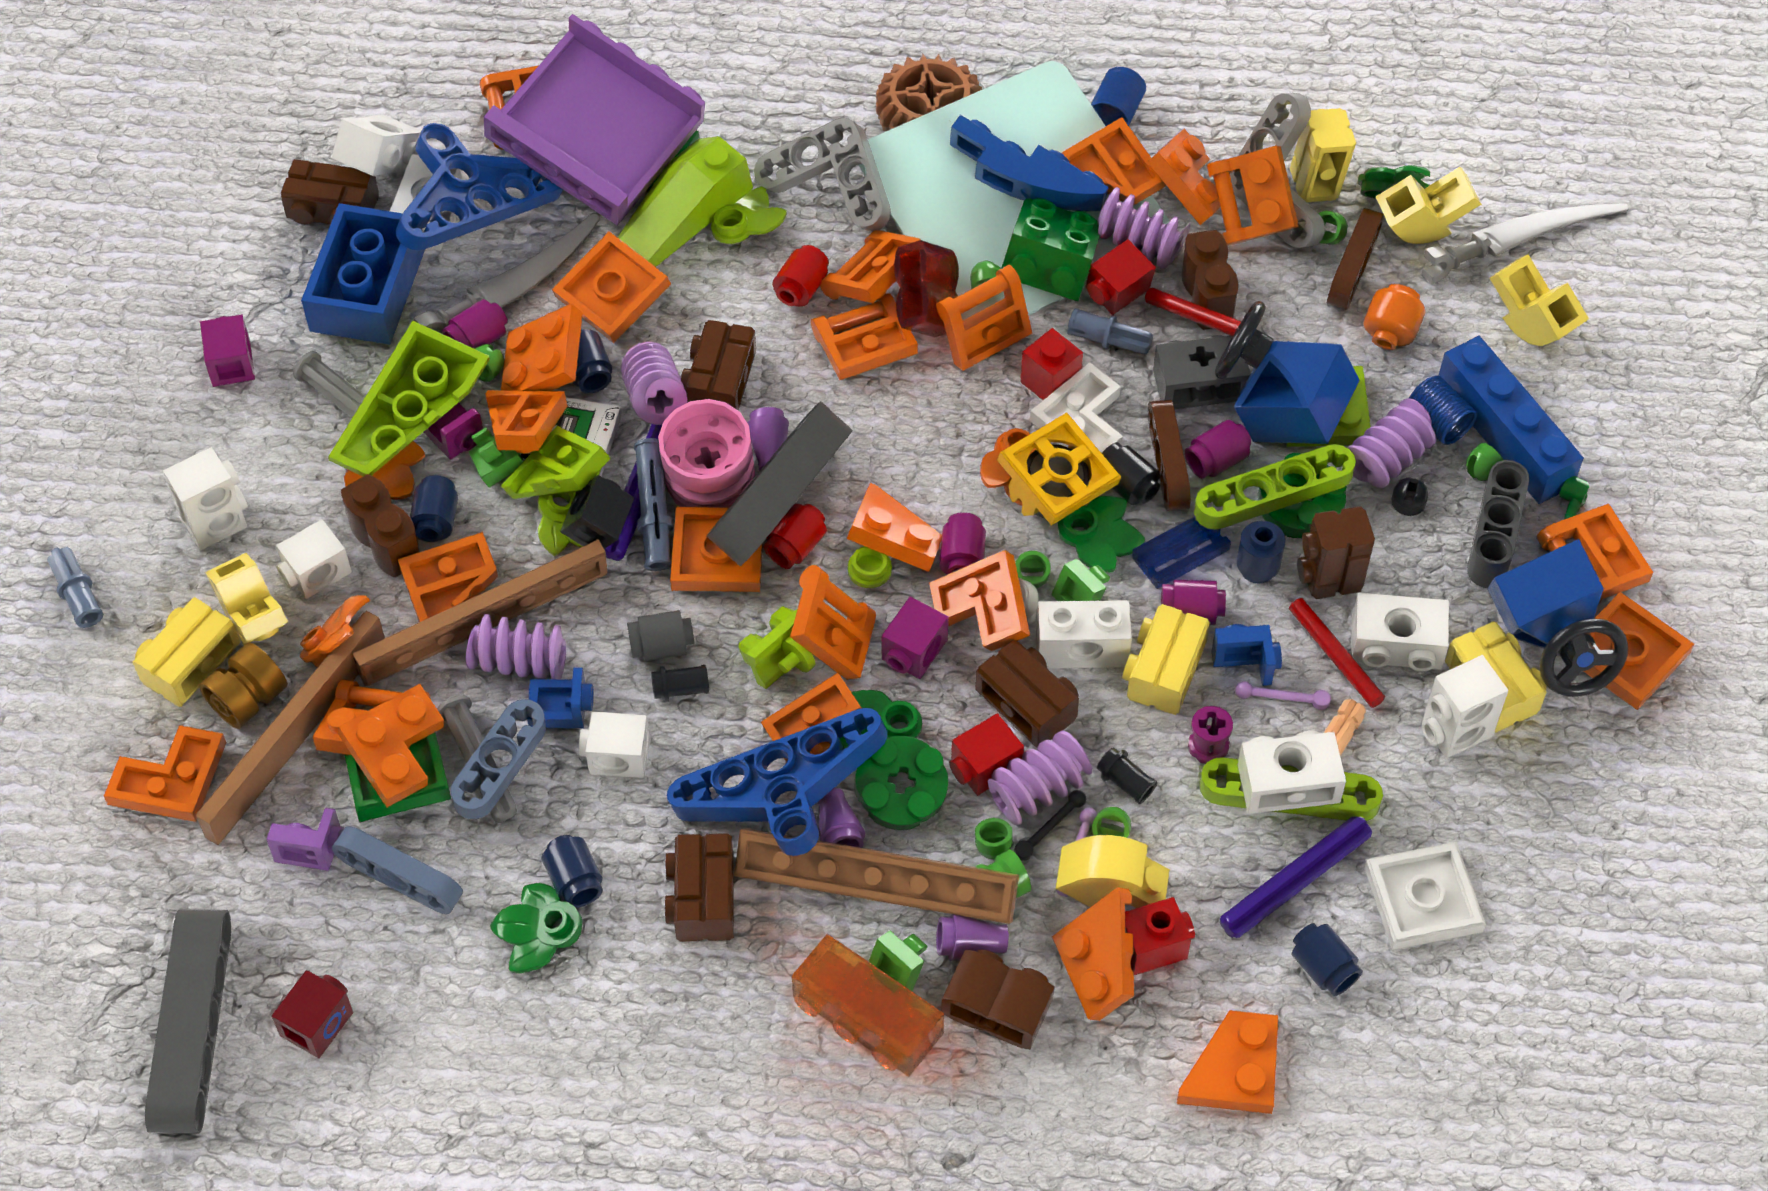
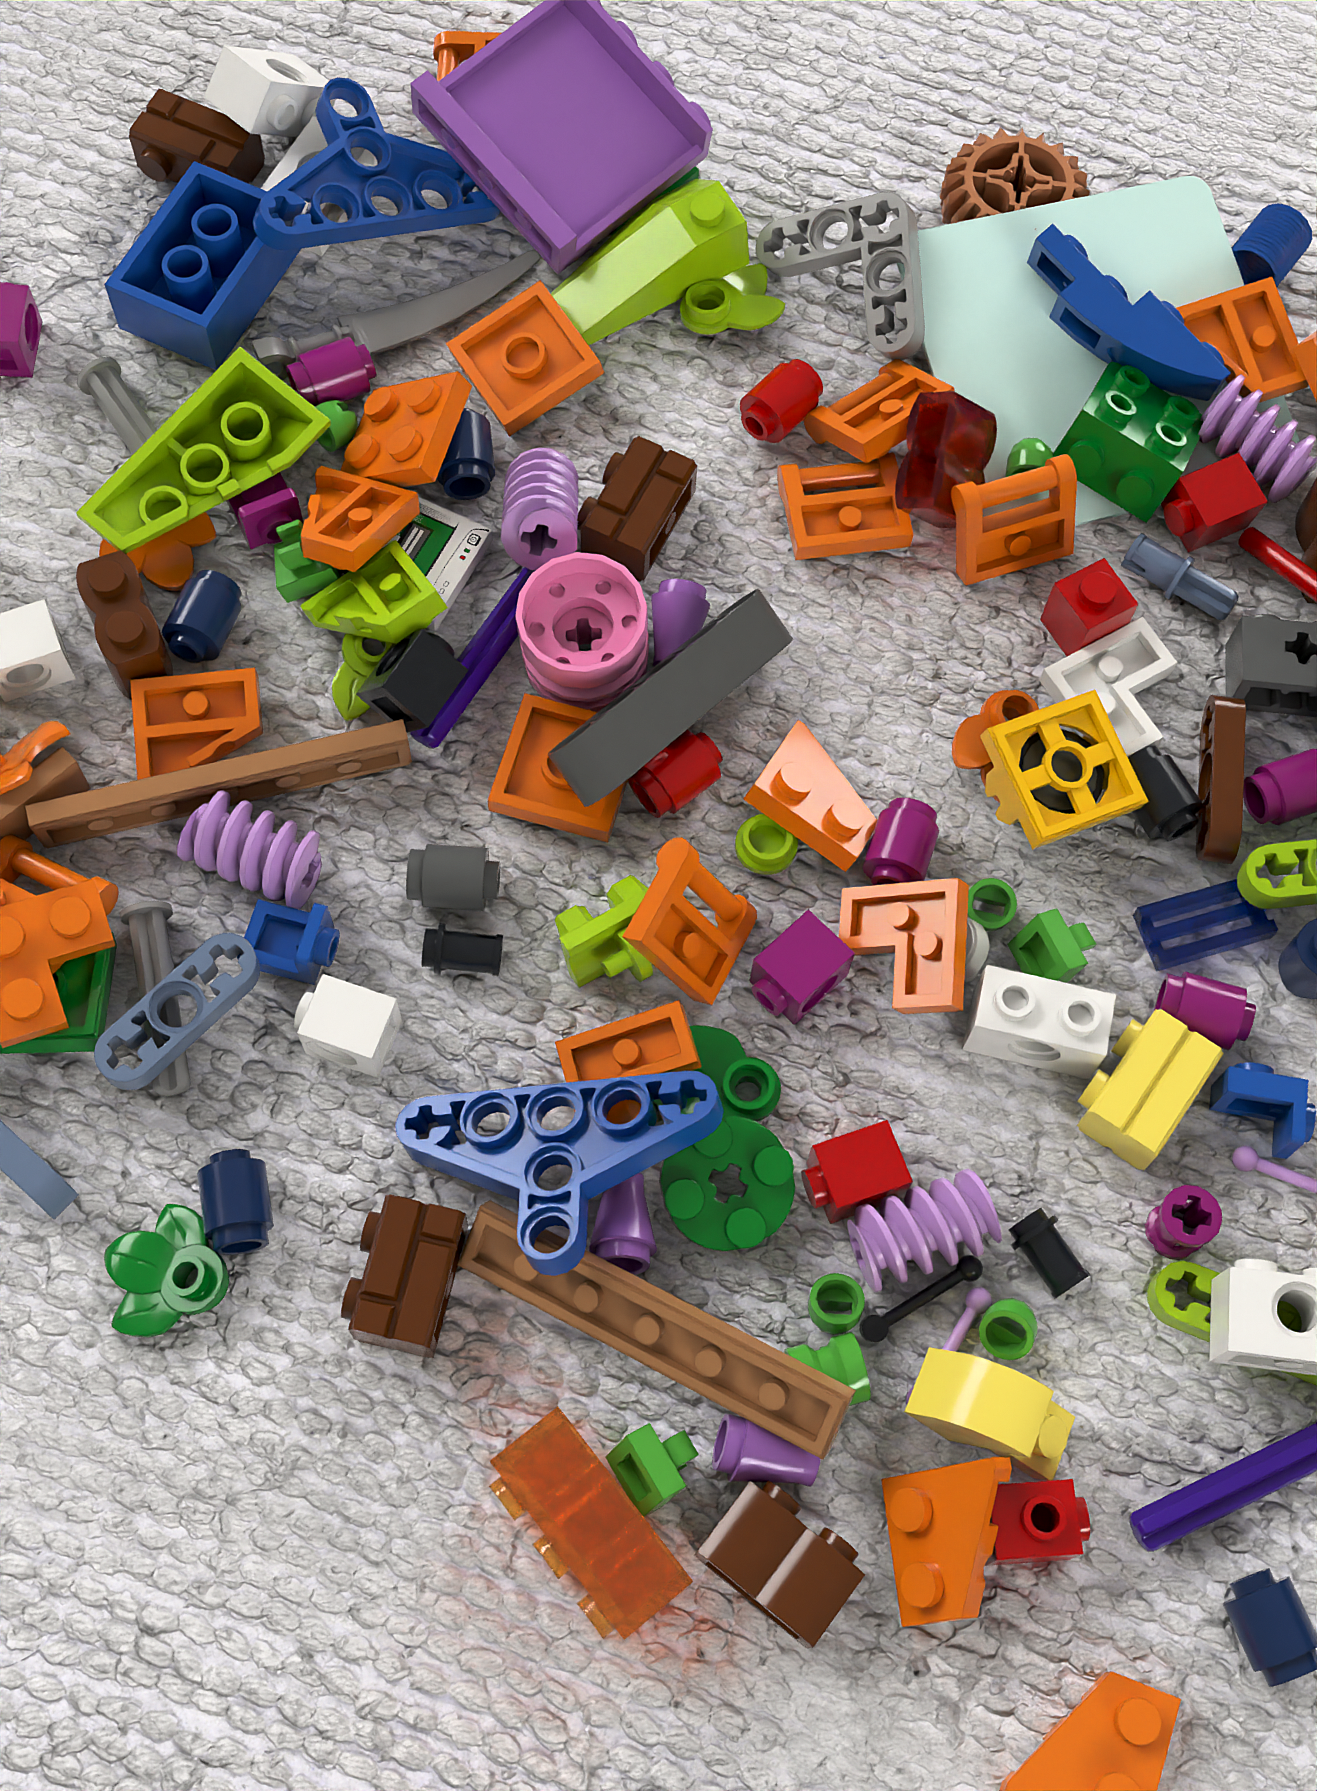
camera: 10 degrees right, 10 degrees up
(654, 519) = (484, 751): sand blue pin -> none
(1027, 692) = (939, 1090): reddish brown brick -> none
(1104, 534) = (1104, 877): green plate -> none

